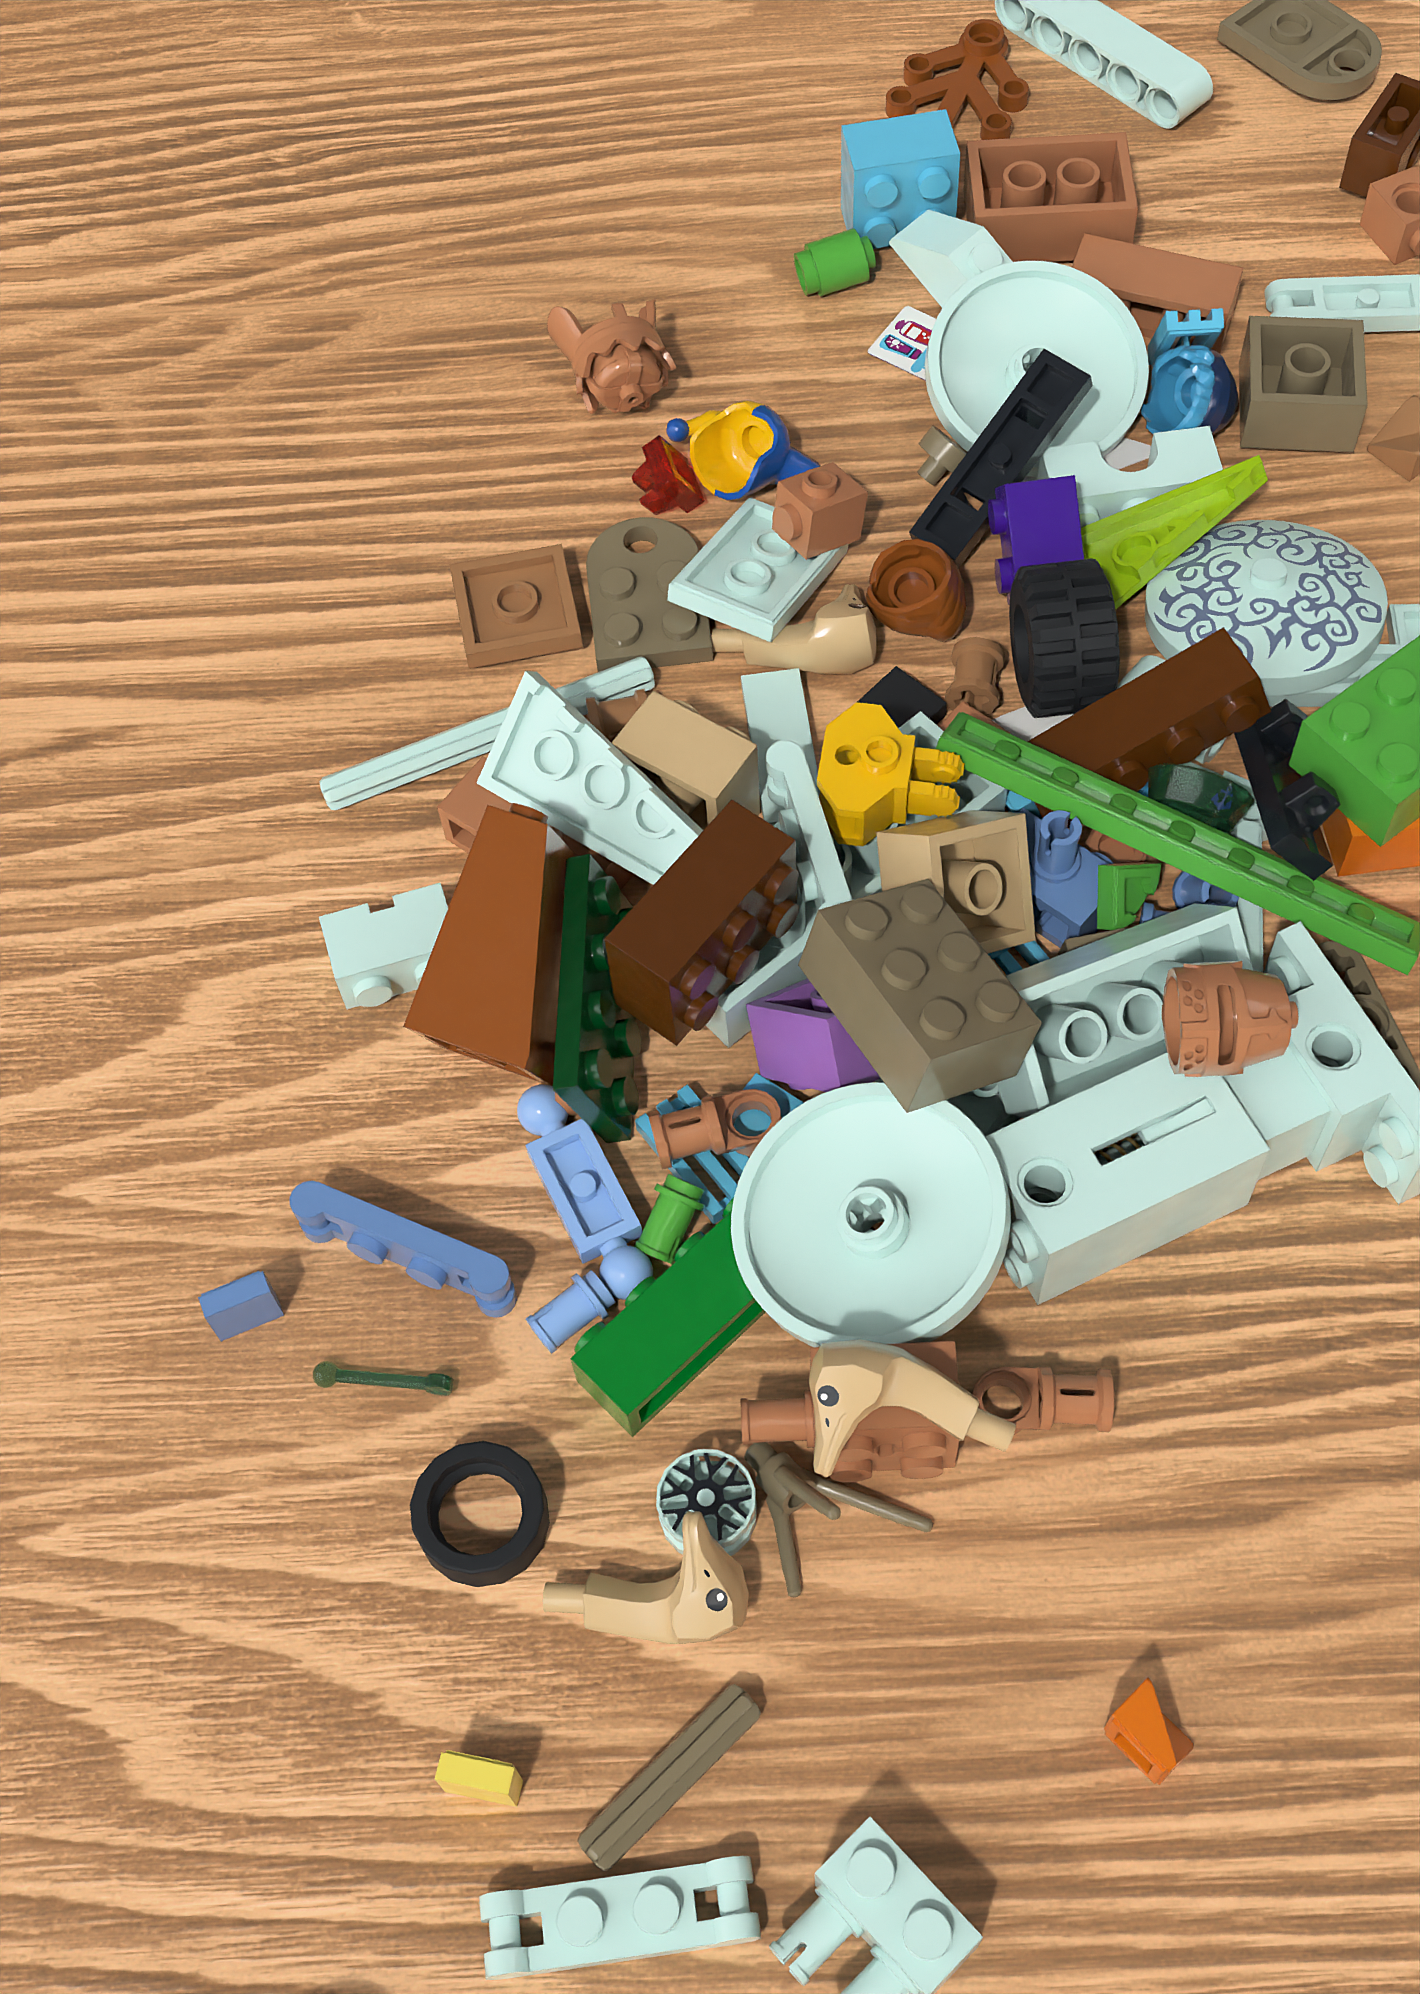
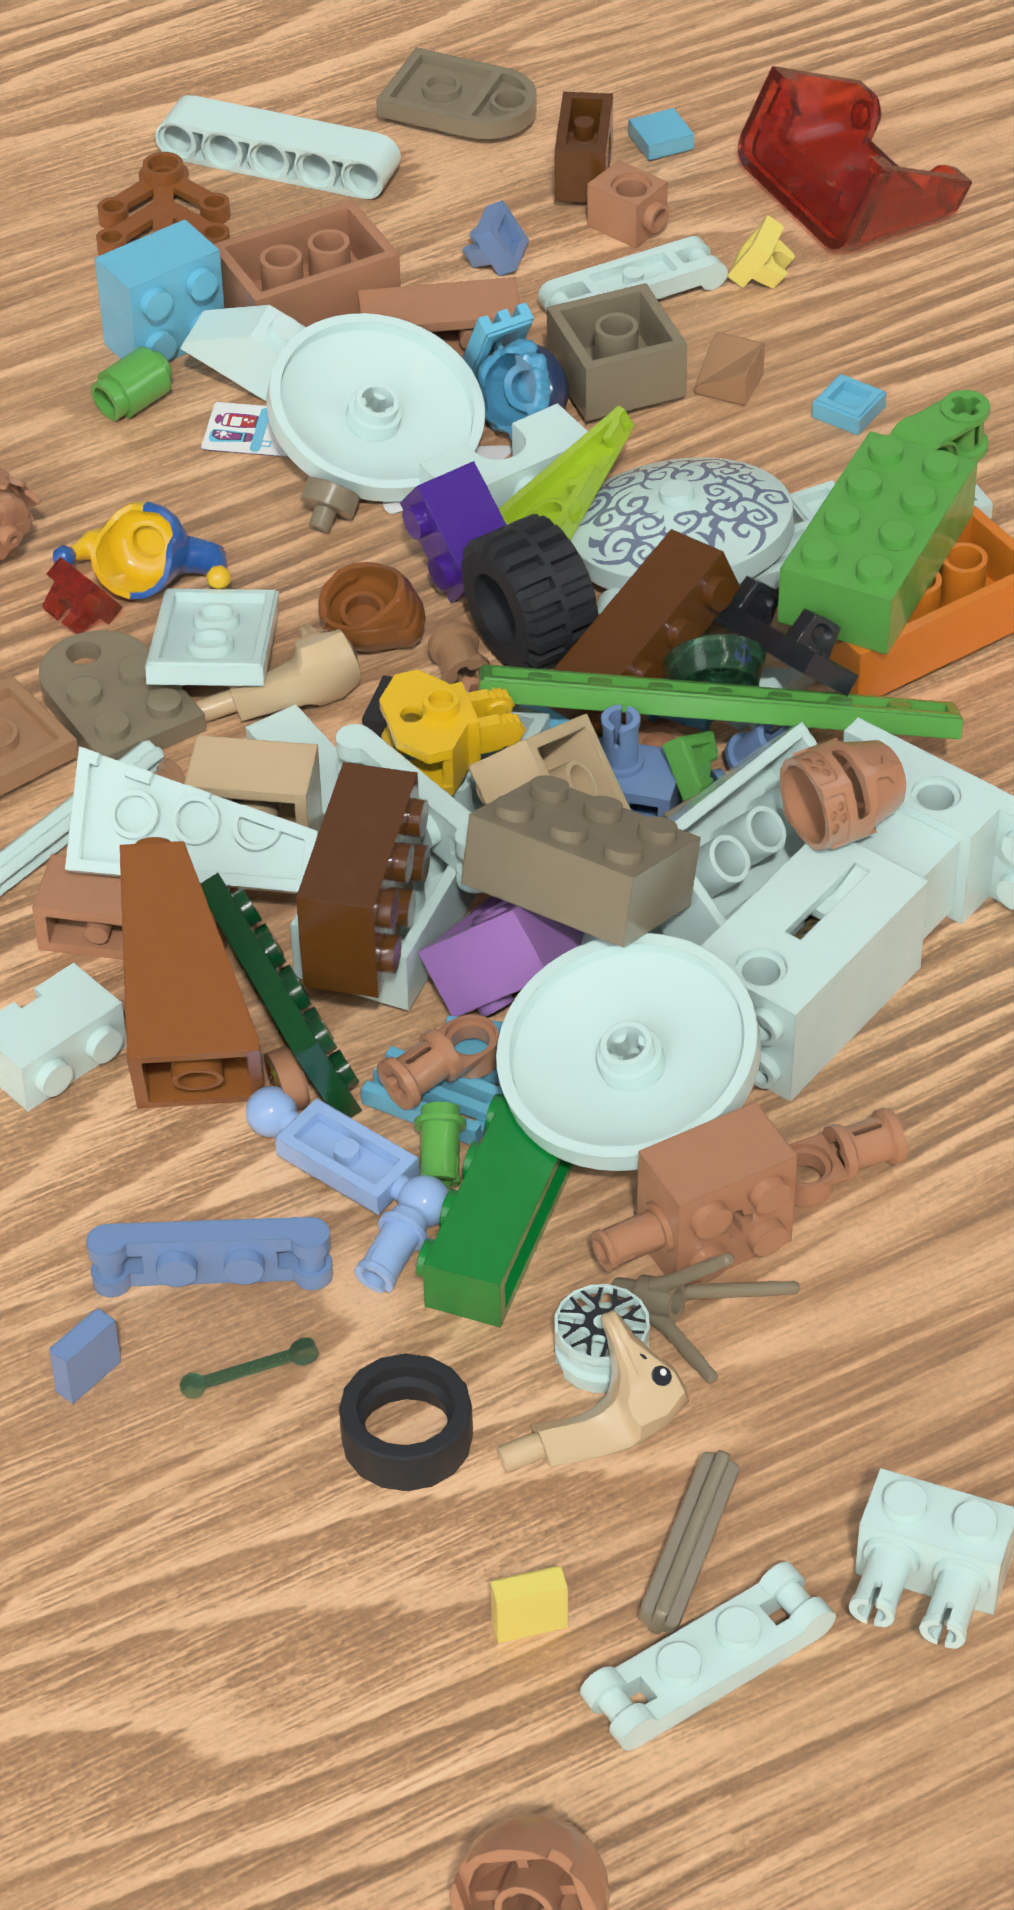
camera: 30 degrees left, 15 degrees down
(819, 510) = (247, 570): nougat brick -> none
(865, 1375) = (701, 1136): tan animal -> none
(1003, 453) = (390, 471): black hinge -> none
(1256, 216) = (497, 240): none -> medium blue tile

